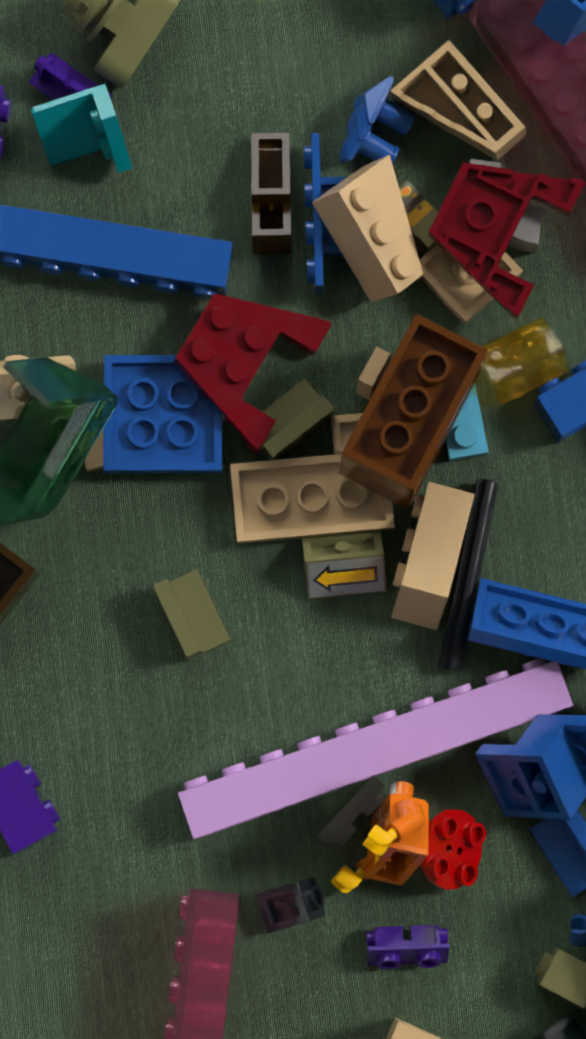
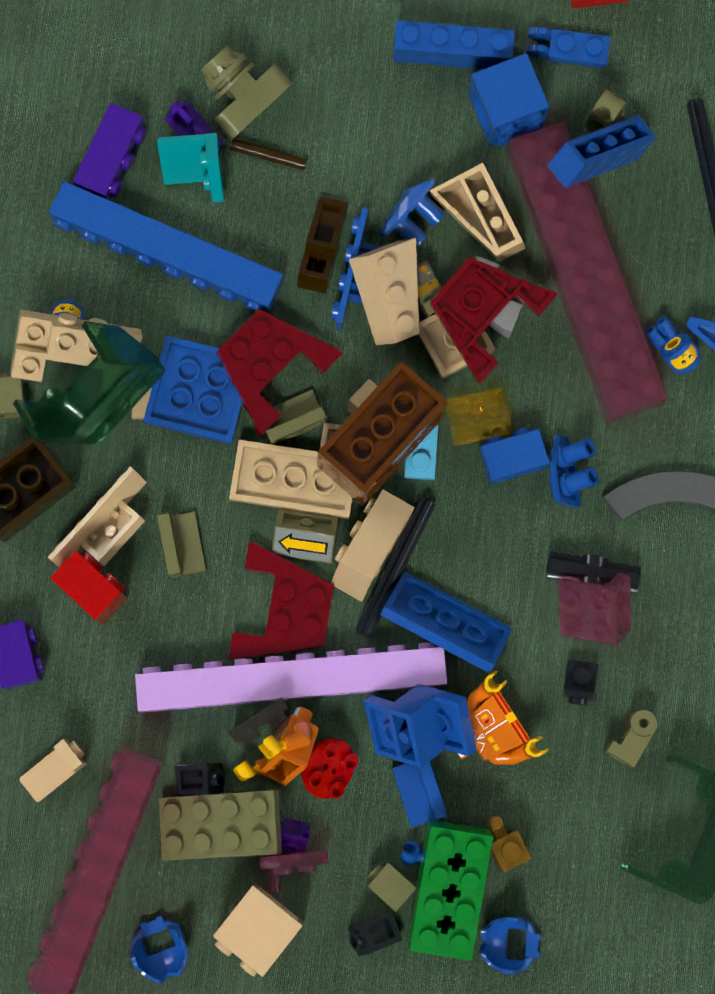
camera: 15 degrees right, 0 degrees up
(89, 616) = (106, 524): none -> tan bracket
(91, 697) = (88, 588): none -> red brick
(104, 940) = (53, 769): none -> tan bracket
(172, 95) = (268, 154): none -> dark brown piece
(334, 956) = (220, 825): none -> olive plate
(358, 662) = (296, 611): none -> dark red wing
(428, 984) = (283, 863): none -> clear pink plate

